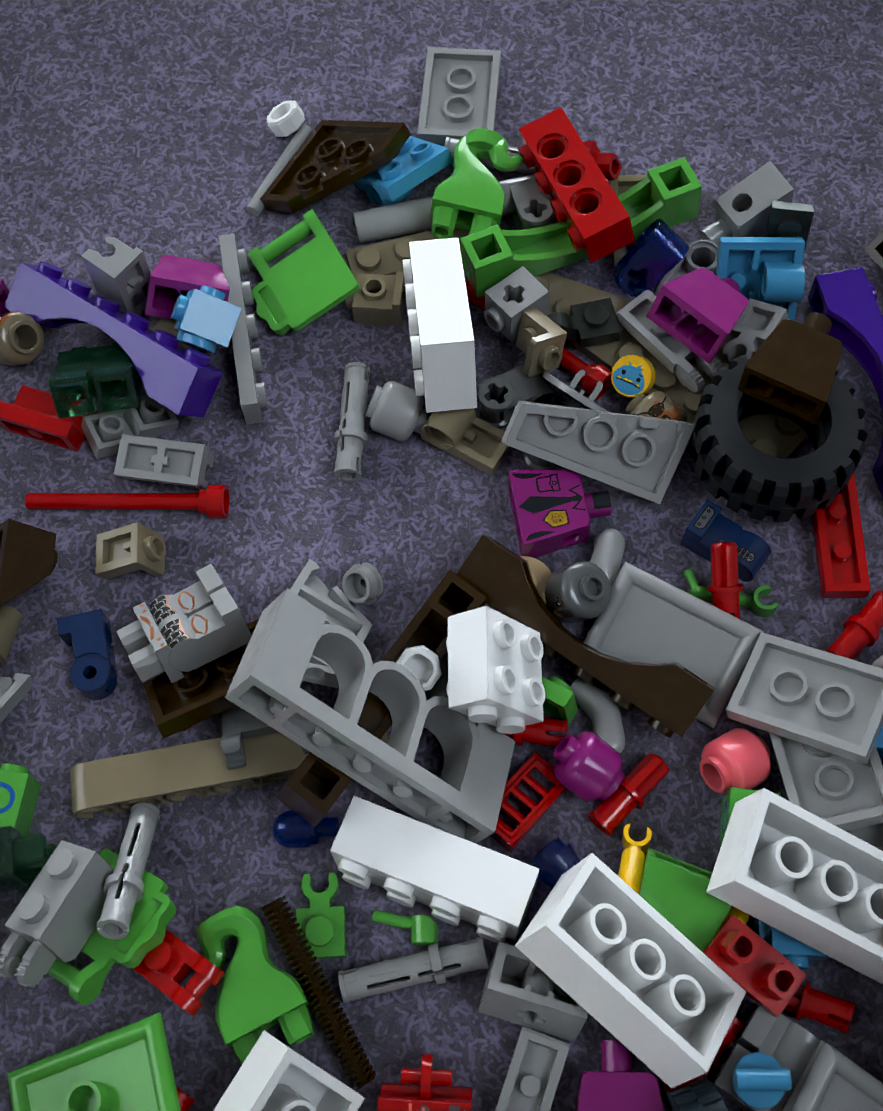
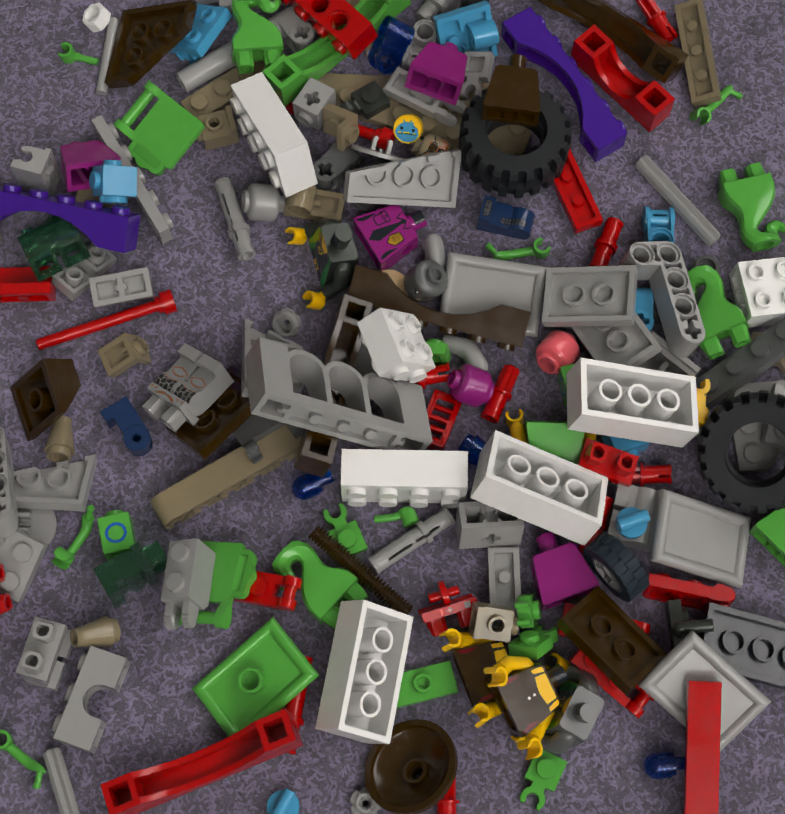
camera: 25 degrees left, 5 degrees up
(126, 884) = (225, 568): light grey pin -> none
(236, 156) = (73, 56): none -> bright green hand
(422, 664) = (350, 356): white tile -> none
(461, 515) = (332, 254): none -> pearl dark grey torso
(725, 577) = (512, 241): red axle -> none

